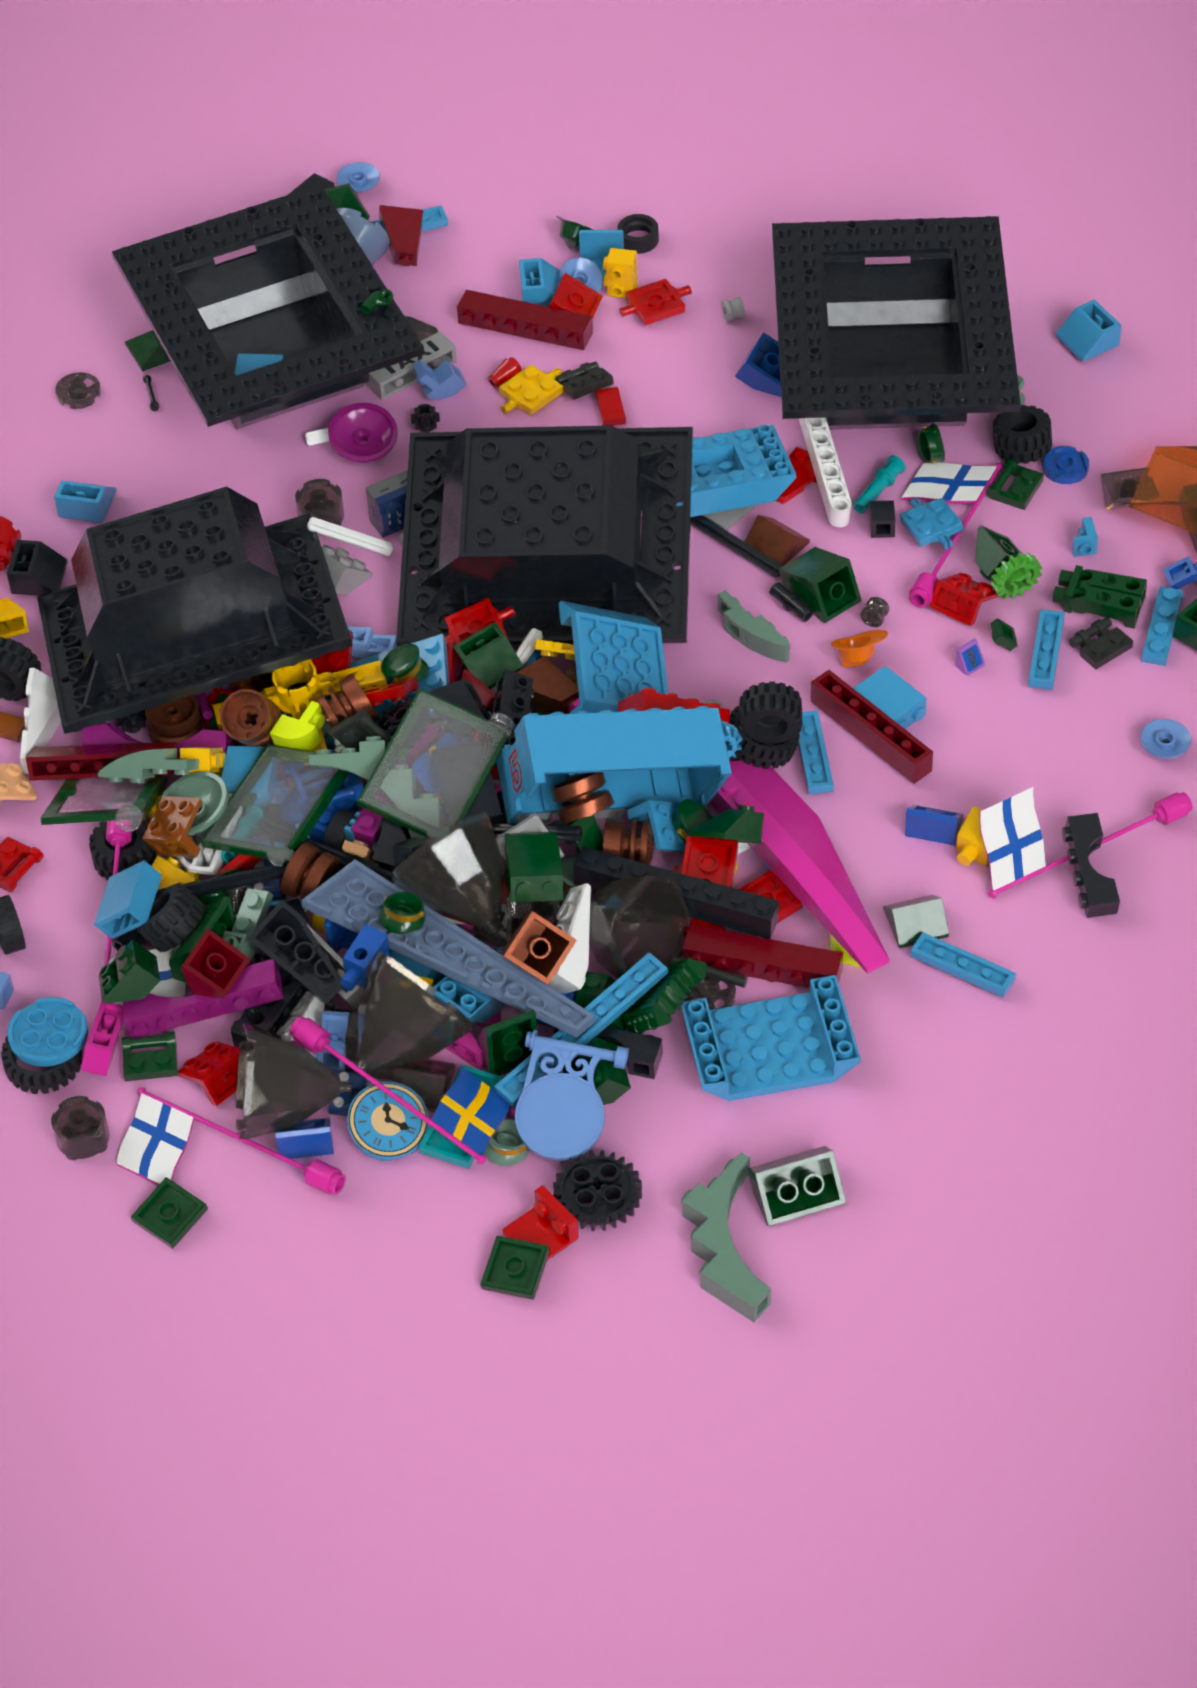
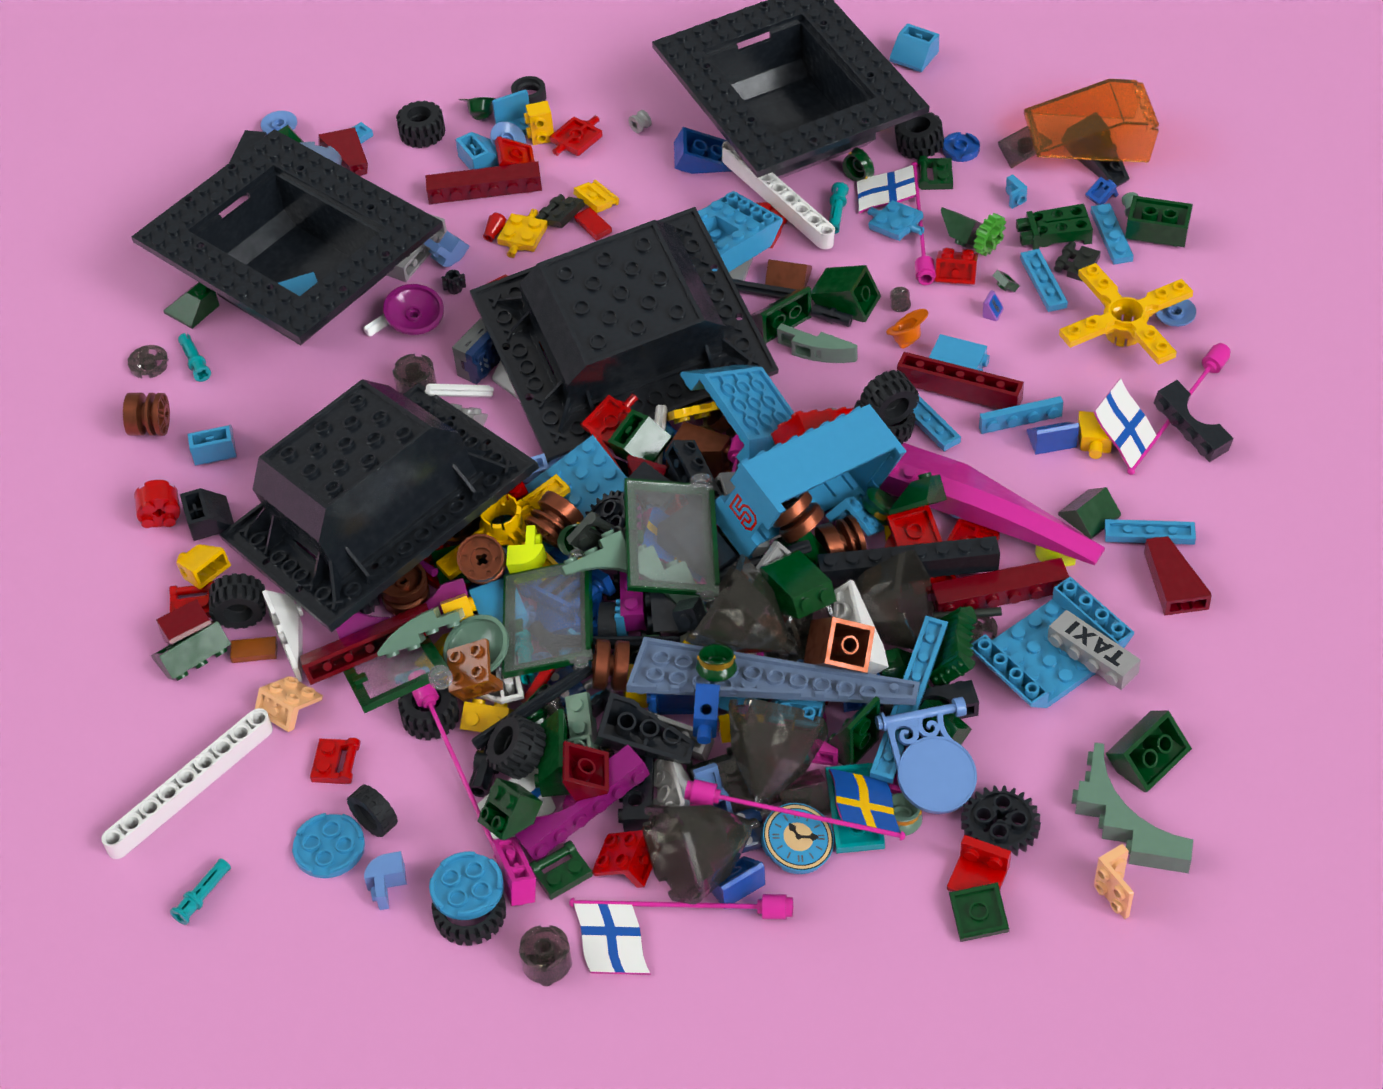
camera: 25 degrees left, 0 degrees up
(38, 445) = (146, 414): none -> copper wheel
(121, 408) = (195, 361): none -> teal pin
(128, 899) = (471, 746): dark azure brick -> none
(154, 406) = (220, 350): black hinge -> none
(169, 1212) = (664, 993): dark green tile -> none
(357, 849) = (636, 628): medium nougat plate -> none
(377, 299) = (383, 197): dark green arm -> none
(394, 691) = (589, 491): red plate -> none
(404, 663) = (579, 469): dark green piece -> none
(500, 230) = (420, 124): none -> black tyre
(632, 377) = (596, 196): none -> yellow plate
(665, 1282) = (1110, 880): none -> light nougat bracket
(740, 580) = (789, 310): none -> dark green slope
(805, 1059) = (1093, 649): none -> light grey brick
(882, 519) = (858, 231): black brick -> none
(914, 787) = (1021, 415): none -> dark azure plate
(950, 1023) = (1174, 579): none -> dark red slope
(1094, 713) = (1115, 306): none -> yellow piece

